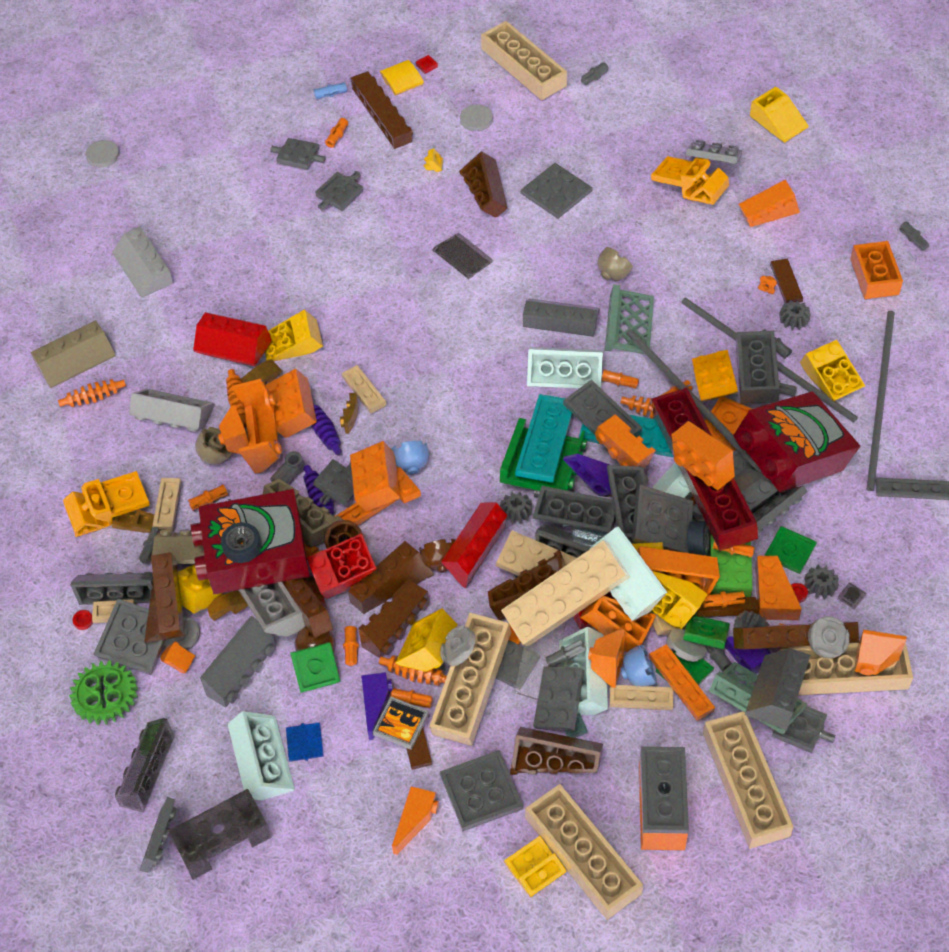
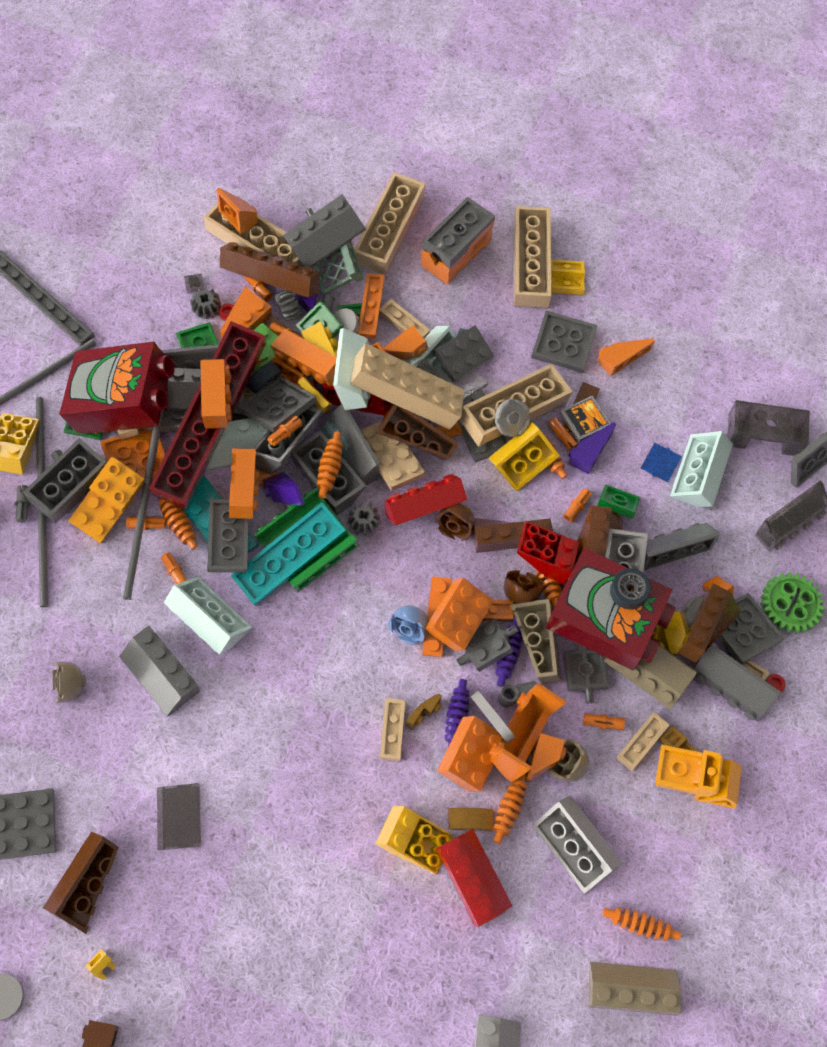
camera: 150 degrees left, 10 degrees up
(146, 553) = (680, 710): dark grey axle -> none
(295, 427) = (492, 716): none -> light grey beam
(339, 191) = (225, 1004): dark grey plate -> none
(393, 619) = (531, 497): reddish brown wedge -> none
(553, 753) = (495, 325): reddish brown wedge -> none
(573, 504) = (329, 465): none -> orange piece
(615, 315) = (124, 628): sand green fence -> none
(629, 492) = (284, 431): none -> orange axle
(638, 667) = (390, 331): medium blue cylinder -> none
(828, 637) = (254, 246): light grey tile -> none

